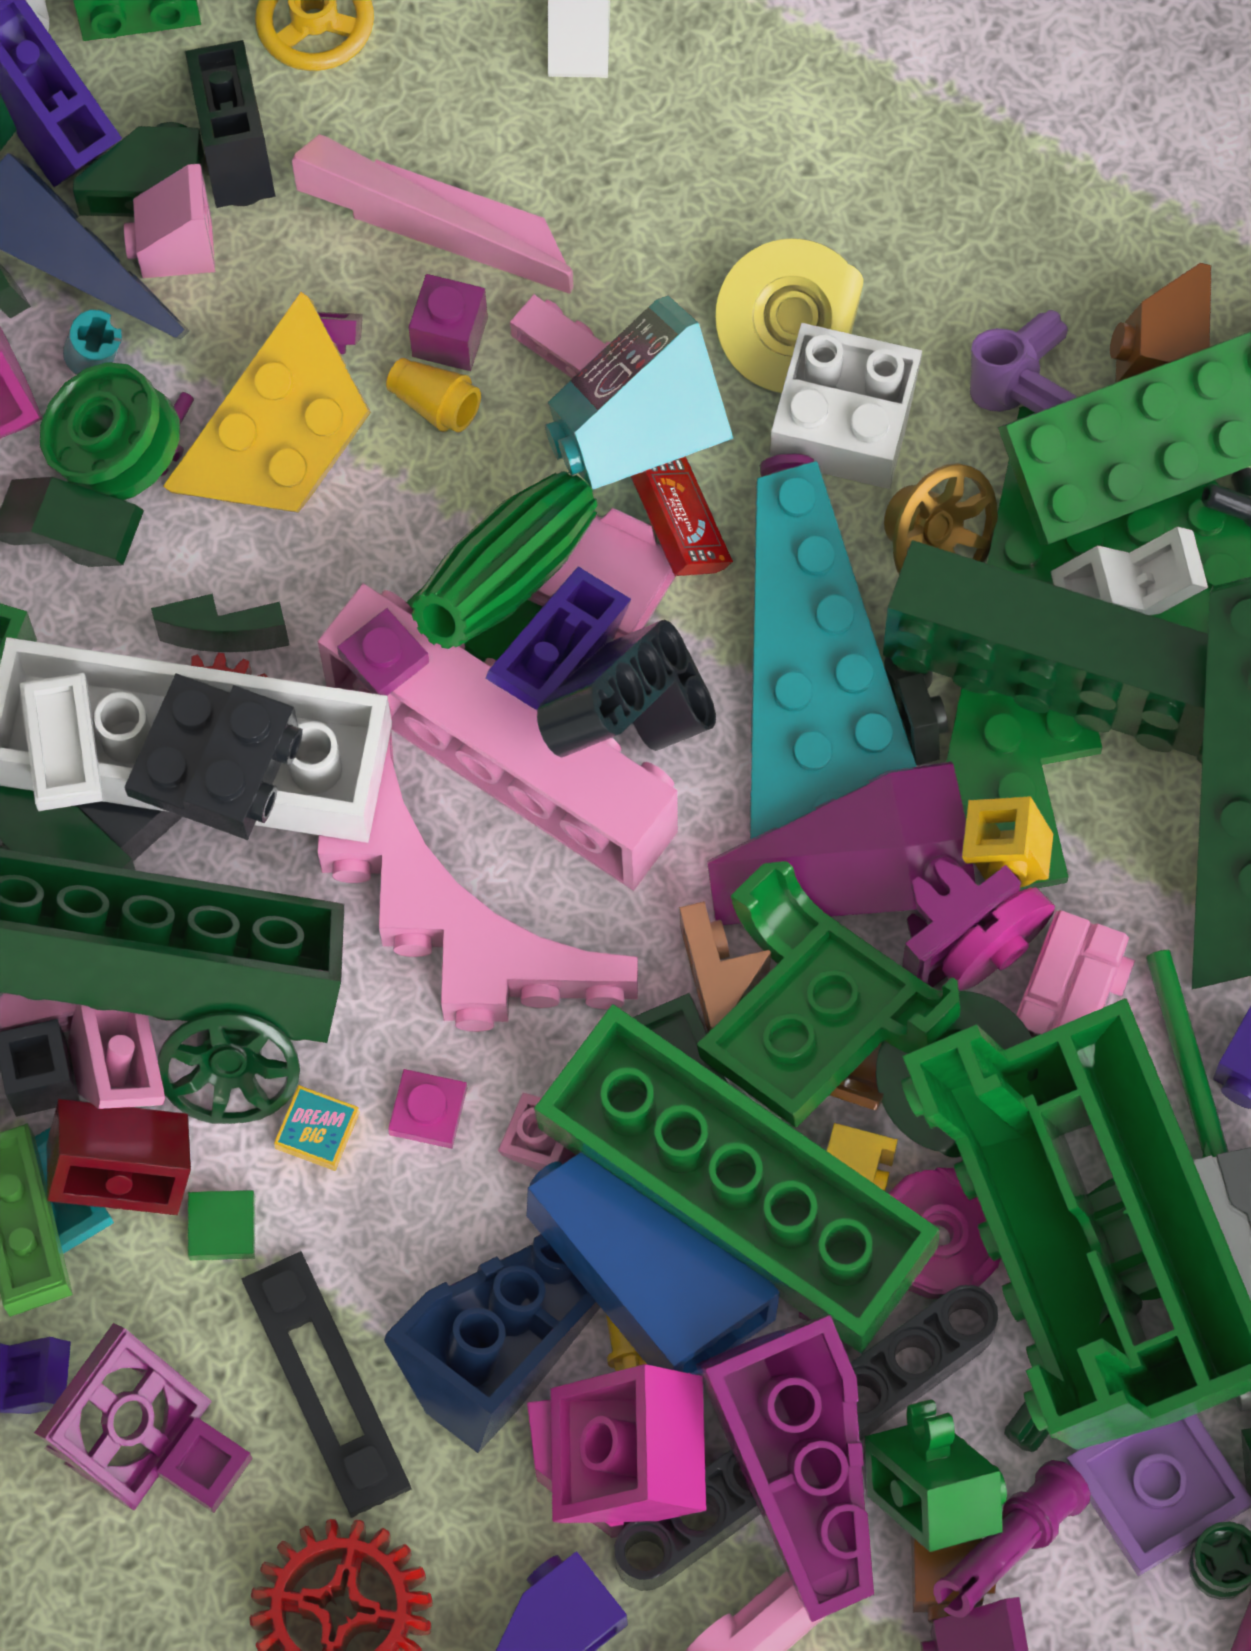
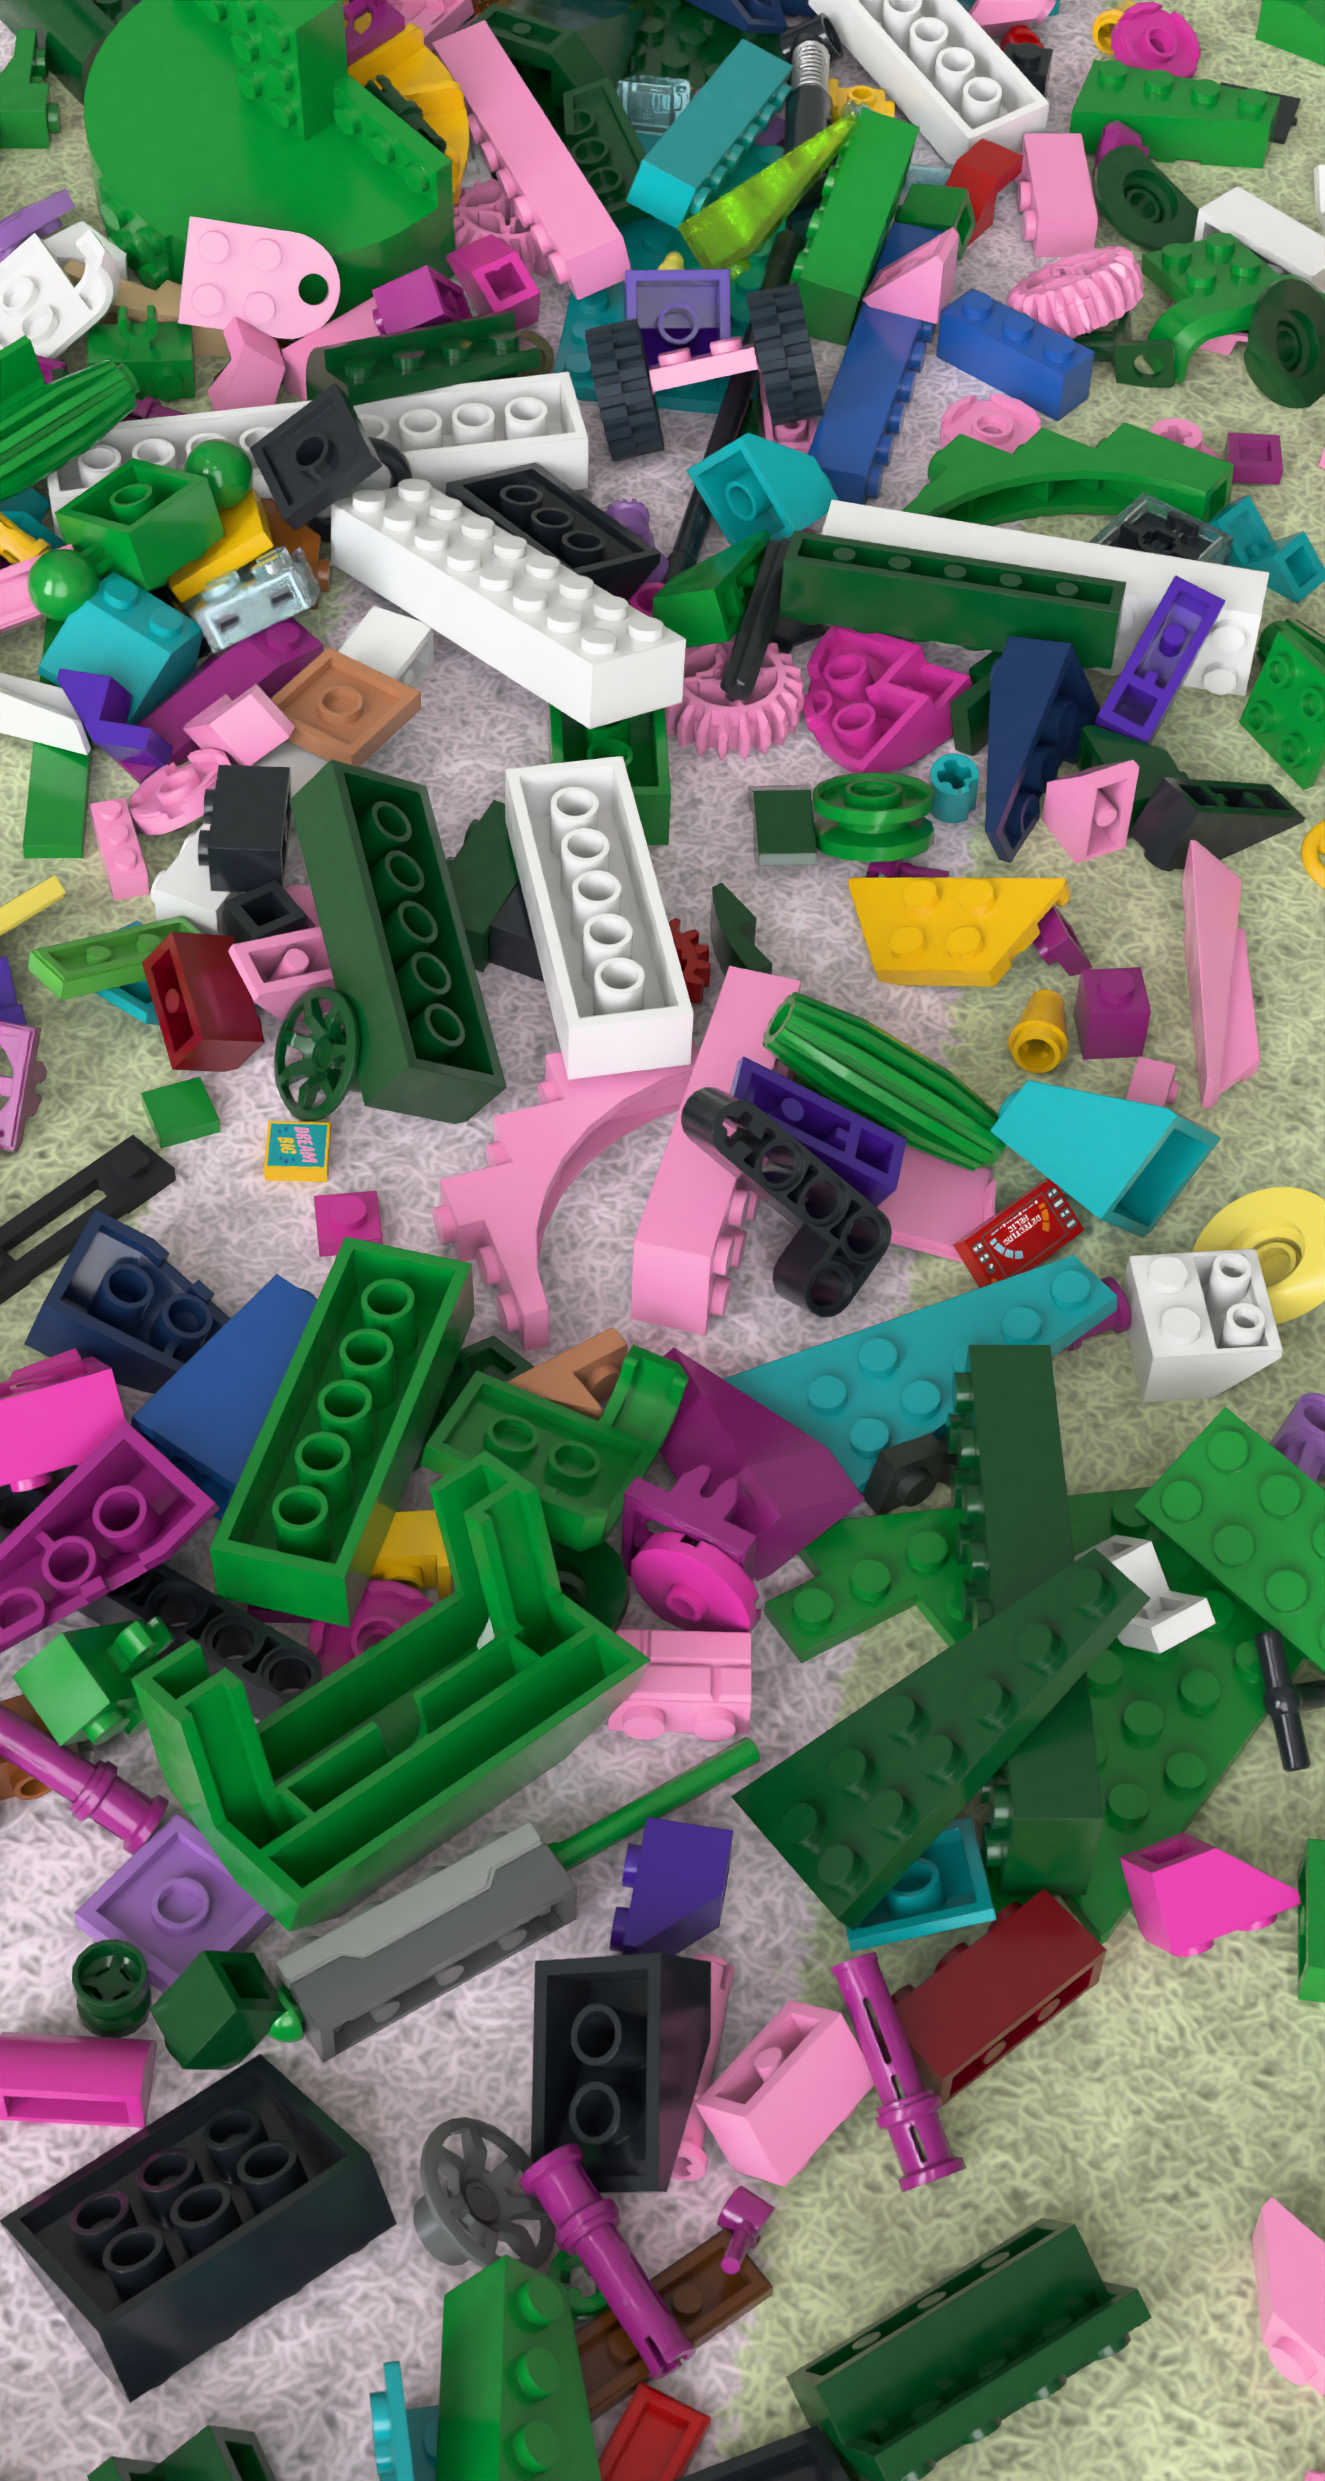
camera: 65 degrees right, 20 degrees down
(61, 741) = (540, 809): white tile -> none
(215, 755) = (573, 906): black plate -> none
(383, 654) = (735, 1006): magenta plate -> none
(938, 518) = (1116, 1421): pearl gold wheel -> none
(1022, 850) = (794, 1553): yellow brick -> none

